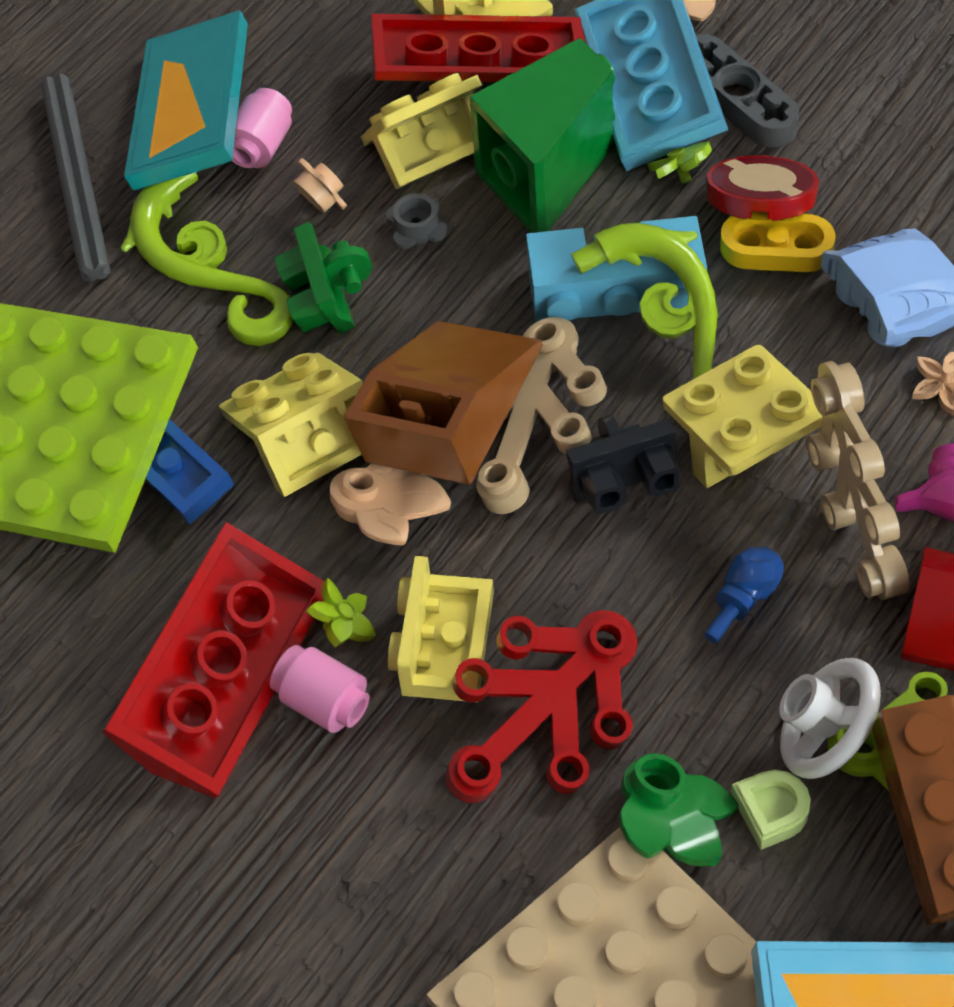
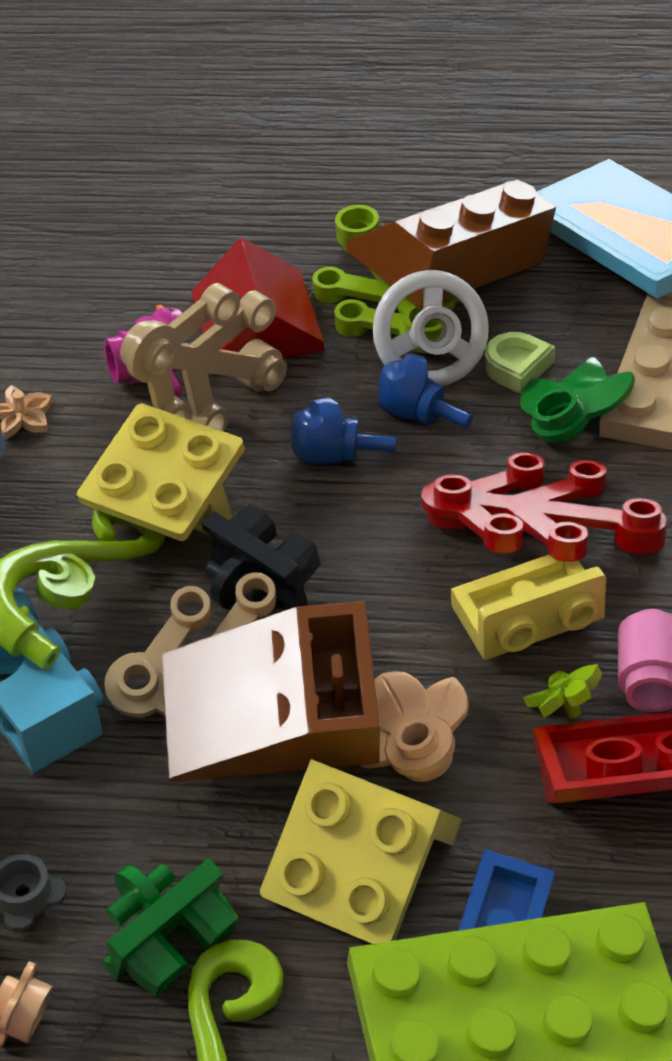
camera: 120 degrees left, 10 degrees down
(761, 677) = (412, 396): none -> blue piece

